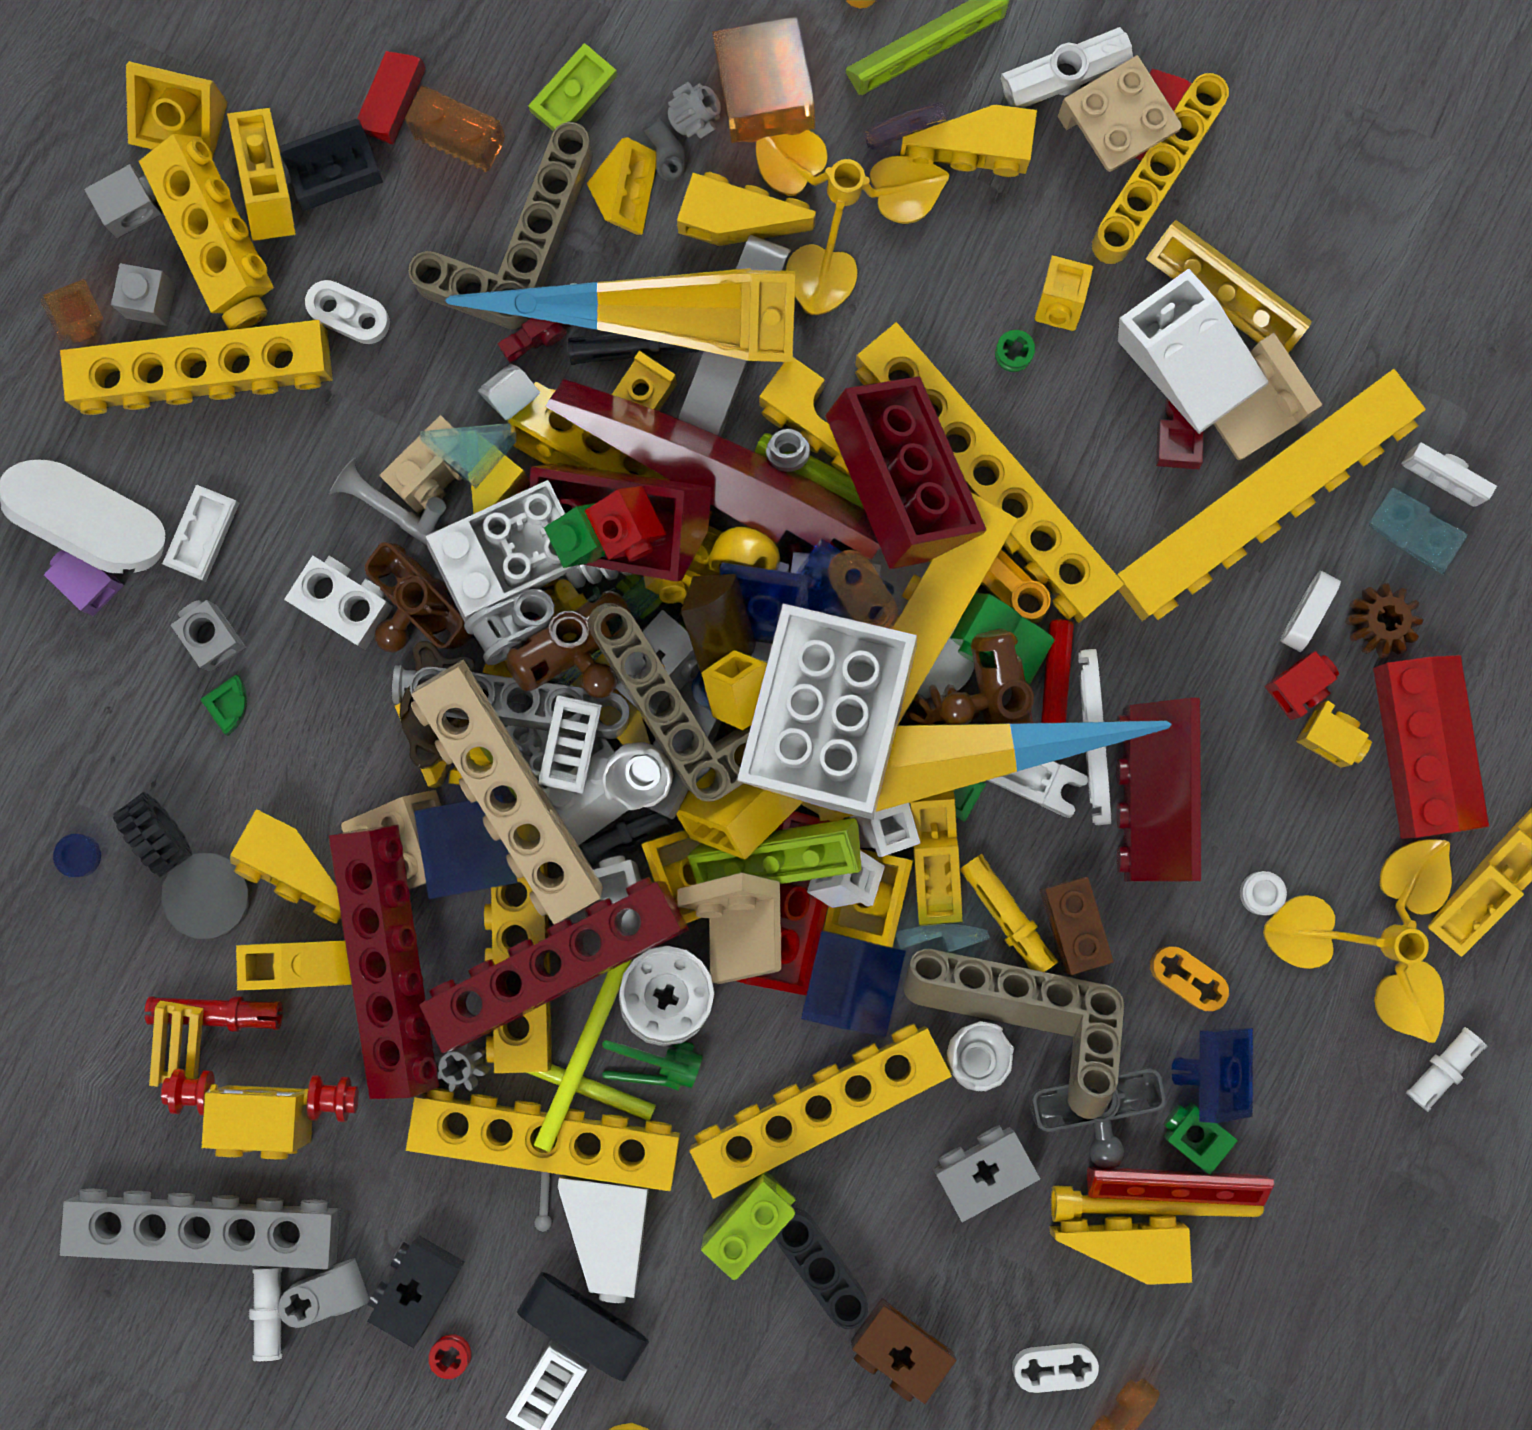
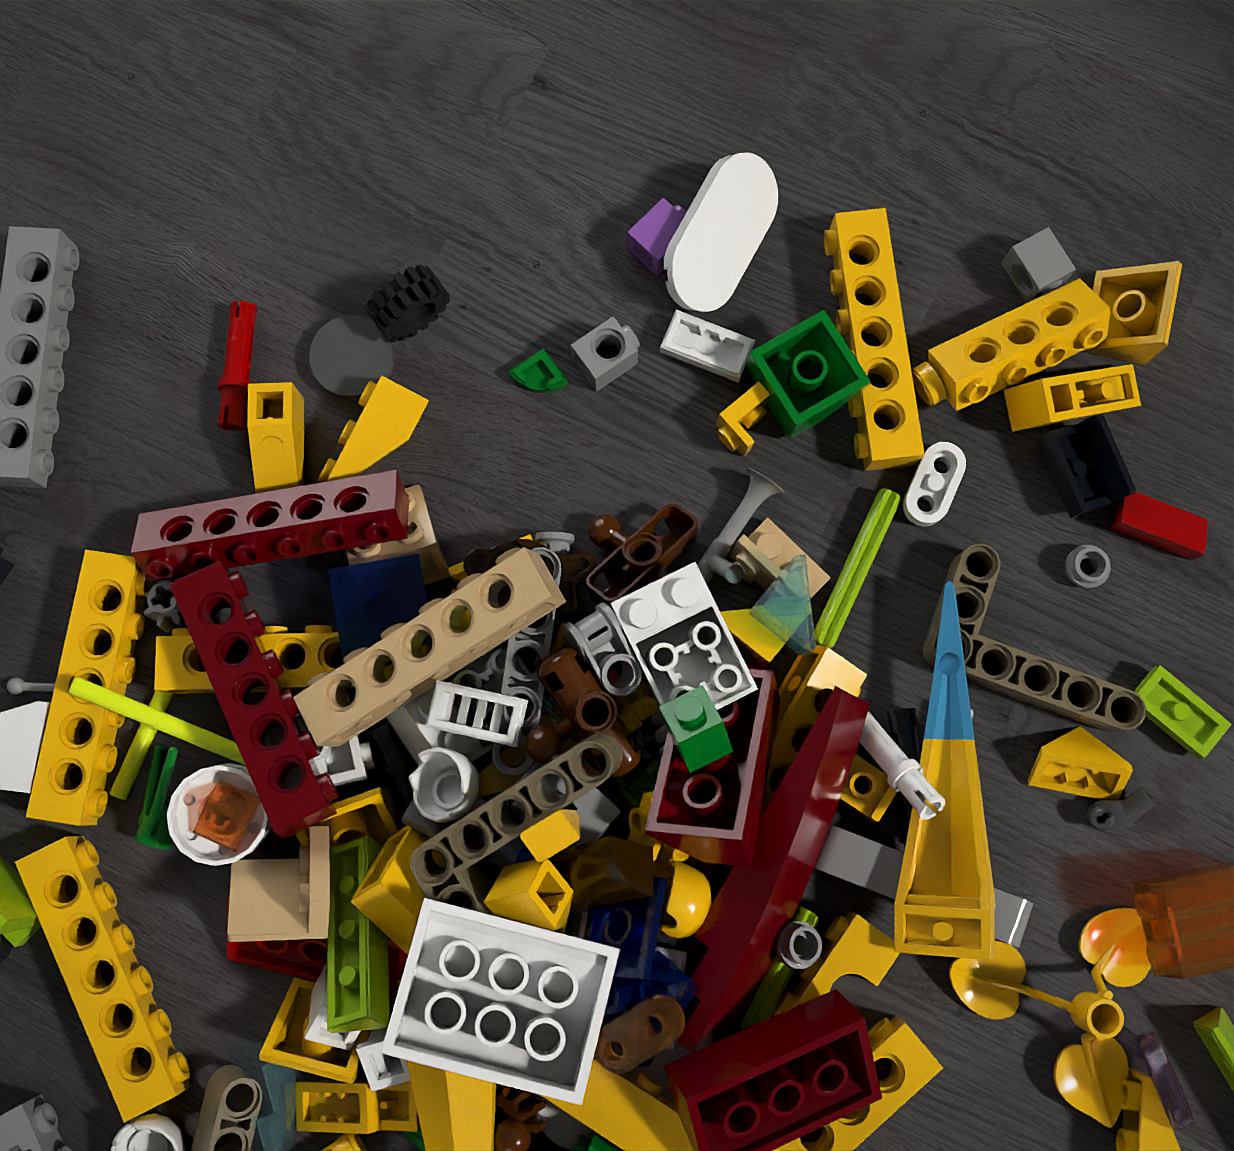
camera: 90 degrees right, 5 degrees down
(72, 312) = (924, 219): clear orange brick -> none
(77, 855) = (395, 238): clear blue tile -> none
(143, 294) = (944, 286): light grey brick -> none
(177, 1010) = (223, 315): yellow tile -> none
(234, 433) = (806, 373): none -> green slope
(258, 1117) = (129, 406): yellow brick -> none
(271, 493) = (745, 410): none -> yellow bracket
(335, 608) = (629, 475): white brick -> none
(425, 387) = (856, 568): none -> lime axle
(429, 156) = (1096, 557): none -> light grey plate
(455, 128) = (1131, 590): clear orange brick -> none
(509, 391) = (855, 647): white slope -> none
(533, 334) = (917, 672): dark red plate -> none
(625, 523) = (705, 774): red brick -> none
(628, 349) = (903, 773): none -> white pin
(668, 987) = (227, 815): none -> clear orange slope
(681, 666) = (552, 834): none -> yellow slope
(694, 110) = (1166, 842): light grey gear -> none
(730, 214) = (1055, 880): yellow slope -> none
(852, 984) = (228, 1007): clear blue slope -> none

